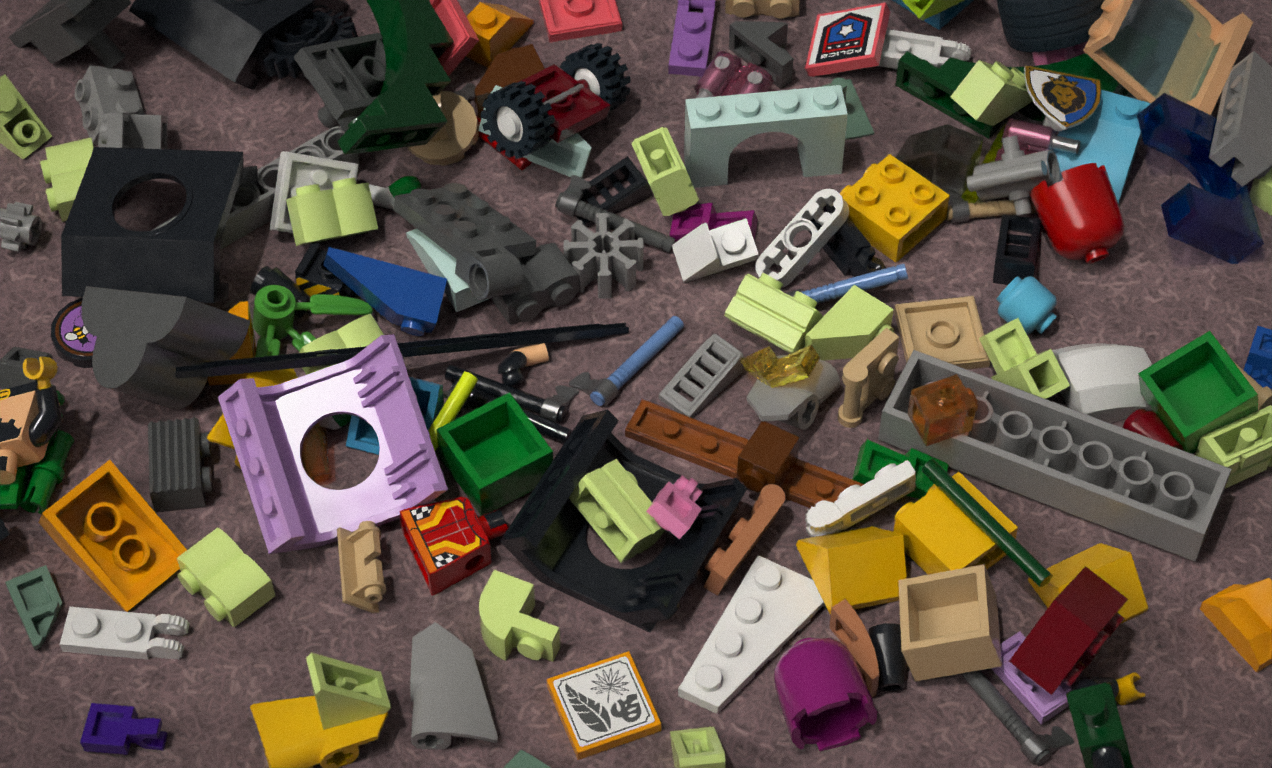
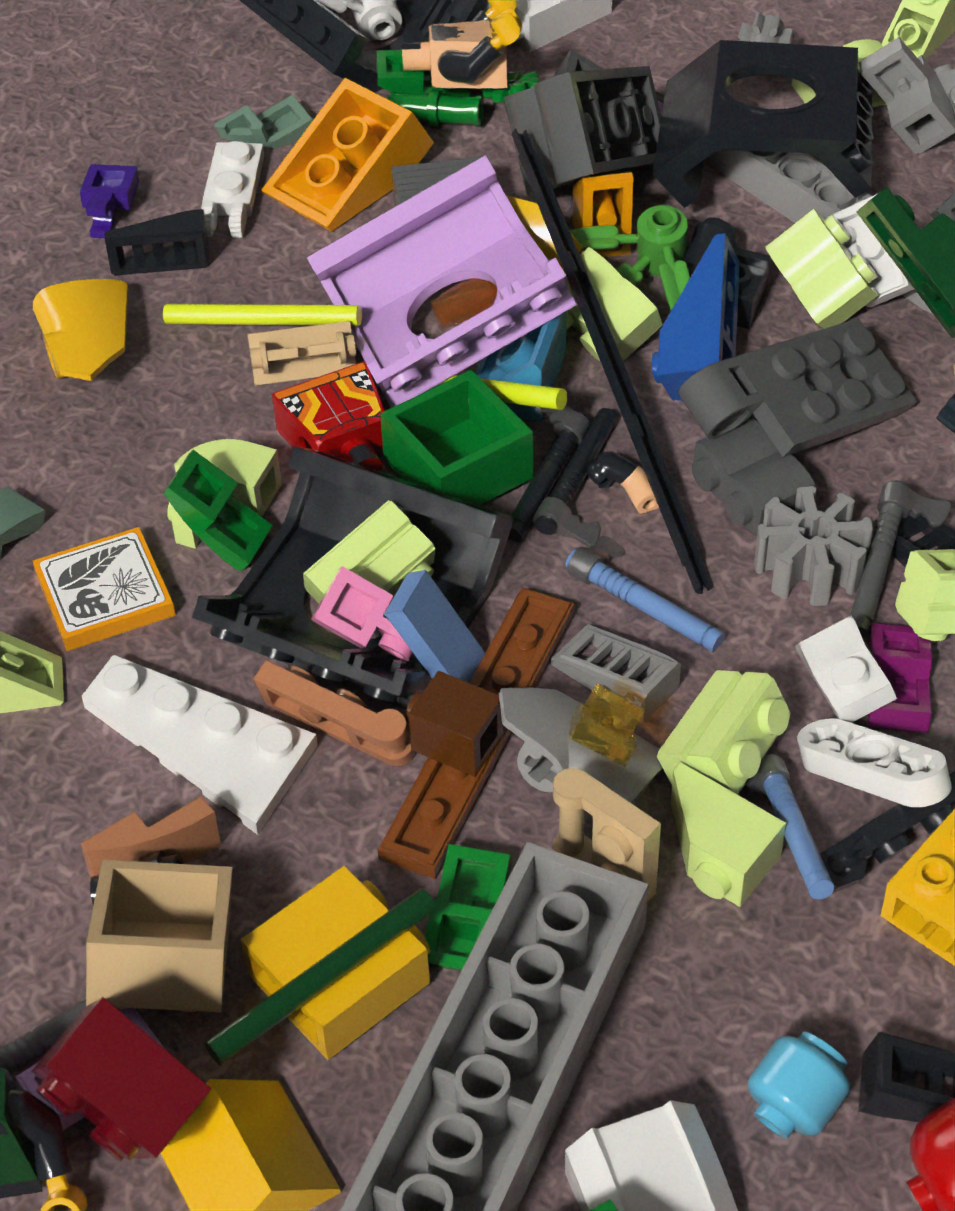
camera: 90 degrees right, 5 degrees down
(205, 665) = (174, 228): none -> black slope
(224, 577) = (278, 249): yellowish green brick -> none
(307, 600) = (261, 314): none -> neon yellow bar
(346, 691) = (102, 316): yellowish green slope -> none
(385, 196) = (893, 344): arm -> none
(446, 692) = (116, 435): light grey panel -> none
(555, 609) = (206, 504): none -> green slope
(688, 467) = (433, 628): none -> medium blue tile
(822, 694) = (72, 785): magenta cylinder -> none
(856, 566) = (286, 836): yellow slope -> none
(860, 502) = (385, 831): white hinge -> none
(942, 409) = (509, 898): clear orange brick -> none
(943, 330) = (735, 973): tan tile -> none
(1019, 363) = (663, 1064): yellowish green brick -> none

